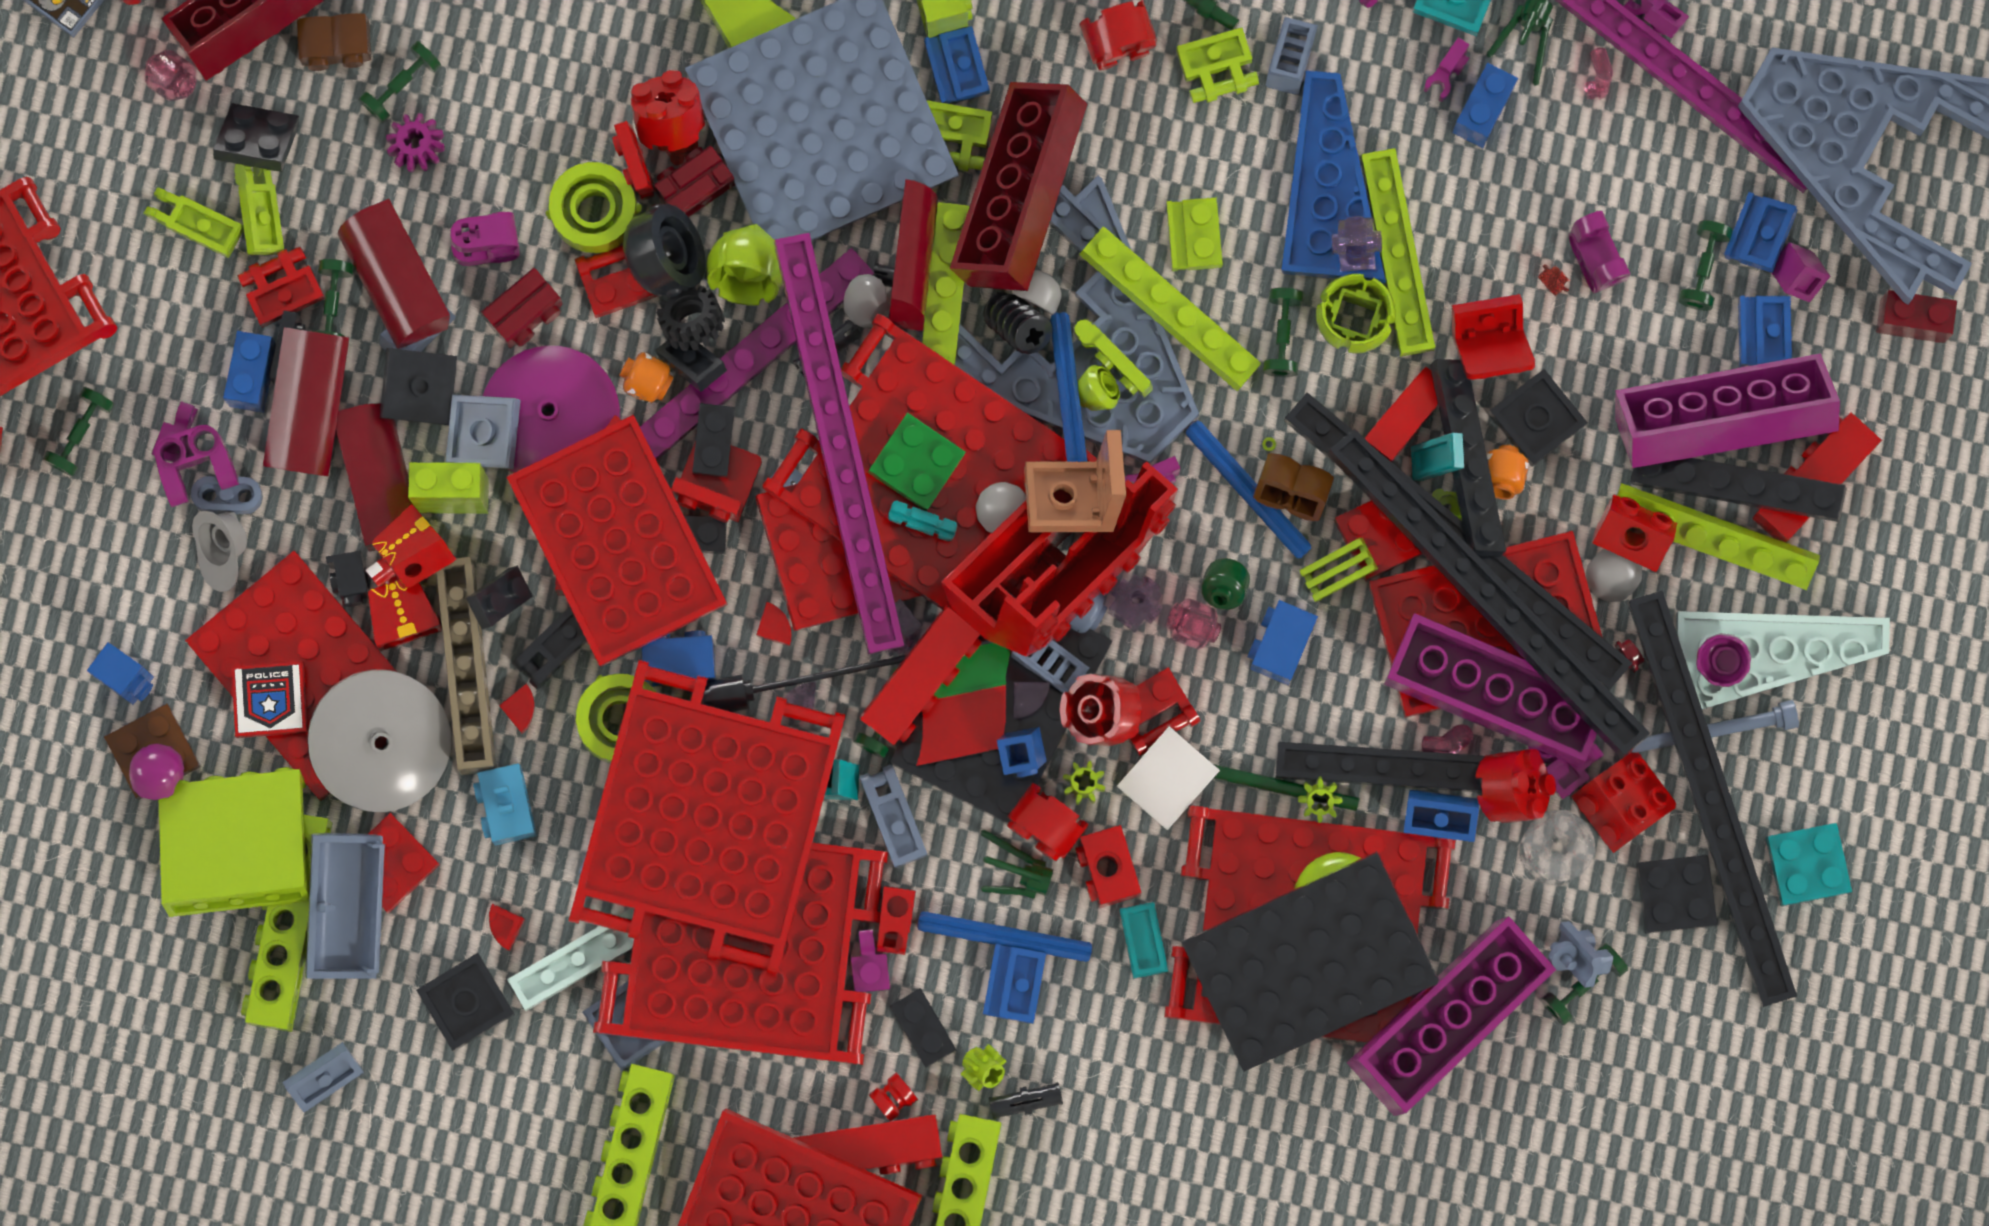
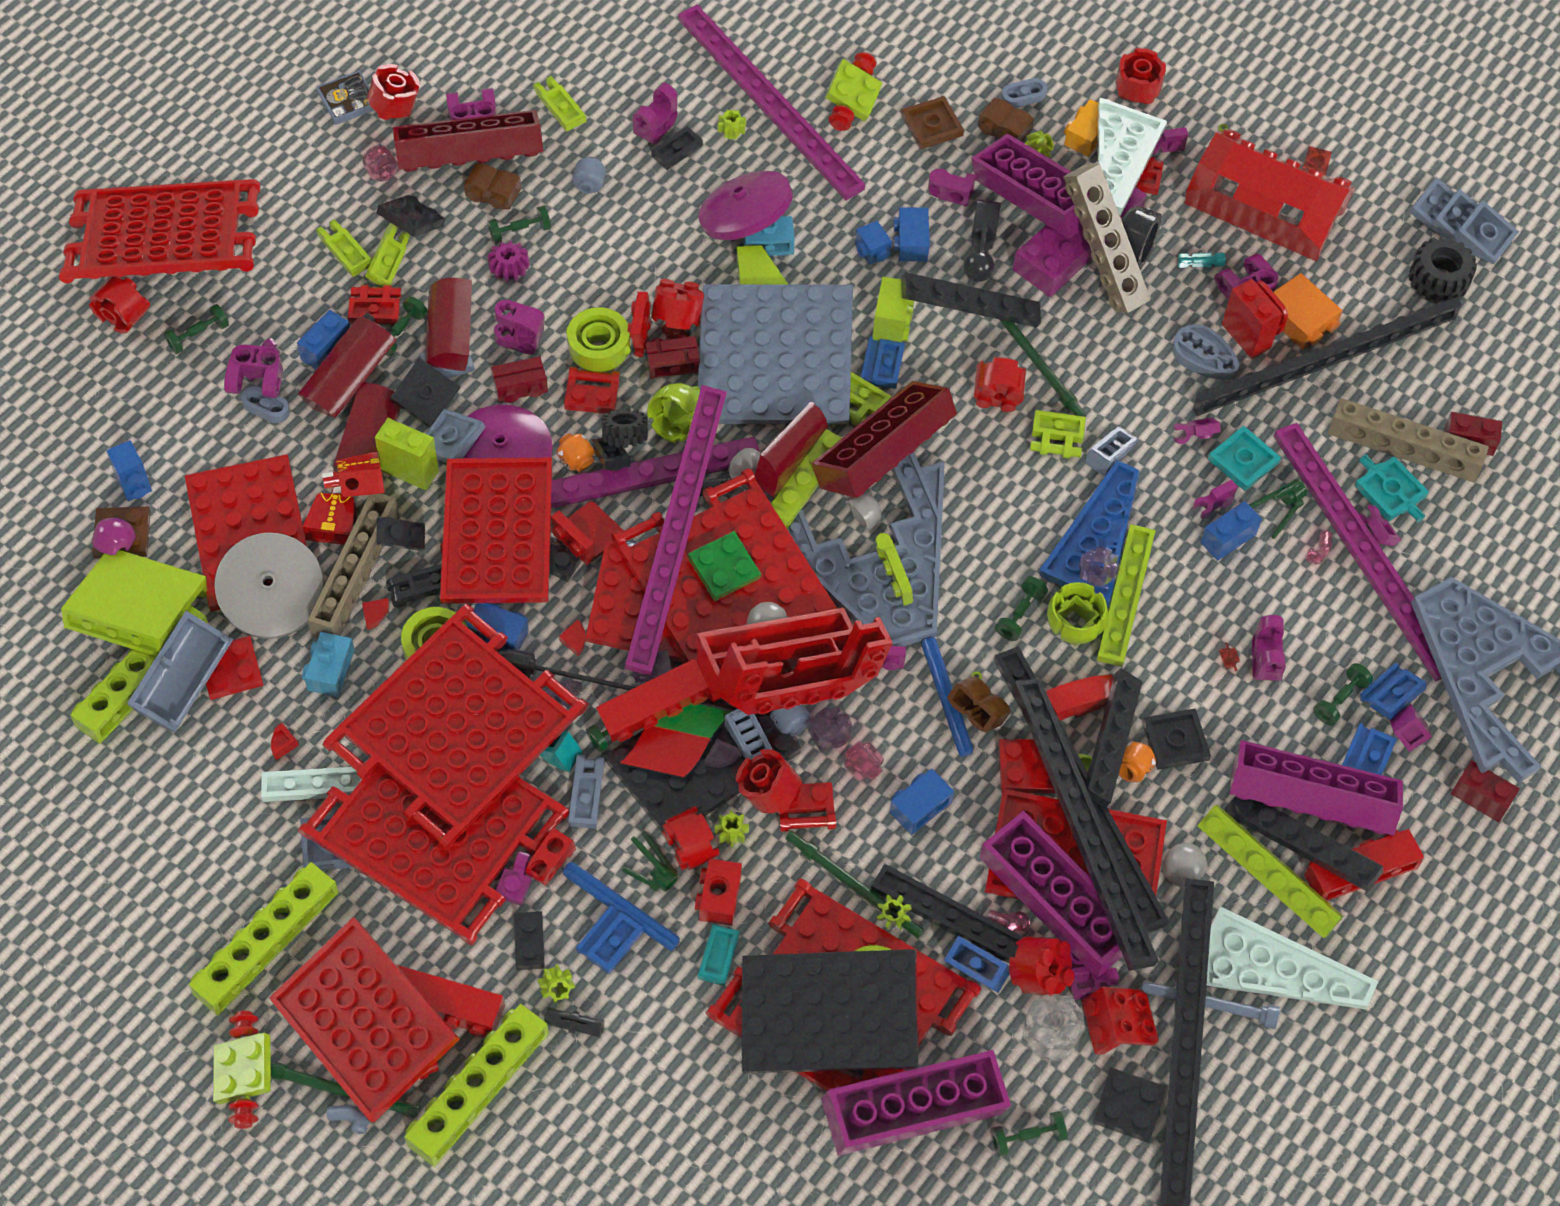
camera: 25 degrees right, 20 degrees down
(219, 544) = (242, 430): light grey piece -> none
(269, 699) = (213, 528): tile -> none
(323, 1077) = (100, 777): sand blue plate -> none
(349, 577) = (311, 482): black brick -> none
(465, 1002) = (225, 775): black plate -> none
(664, 251) = (629, 378): black piece -> none
(713, 440) = (597, 505): black plate -> none
(899, 1091) = (487, 972): red wheel -> none
(922, 521) = (708, 603): teal axle -> none
(1017, 322) = (840, 520): black piece -> none
(1021, 752) = (697, 781): blue brick -> none
(1068, 388) = (852, 573): blue axle -> none
(1094, 486) = (832, 625): nougat bracket -> none
(1098, 389) = (873, 581): lime cone -> none
(1168, 778) = (793, 853): white sticker -> none
(1170, 308) = (950, 560): lime plate -> none
(1194, 234) = (990, 527): lime plate -> none
(1225, 584) = (899, 744): dark green head -> none
(1312, 583) = (985, 767): lime tile -> none
(1437, 457) = (1091, 727): teal tile -> none
(1491, 337) = (1167, 669): red bracket -> none
(1578, 955) = (1034, 1106): sand blue hips -> none
(1631, 652) = (1174, 925): dark red plate -> none
(1643, 548) = (1197, 831): red brick -> none
(1723, 660) = (1238, 948): magenta hair -> none
(1808, 864) = (1240, 1130): teal plate -> none

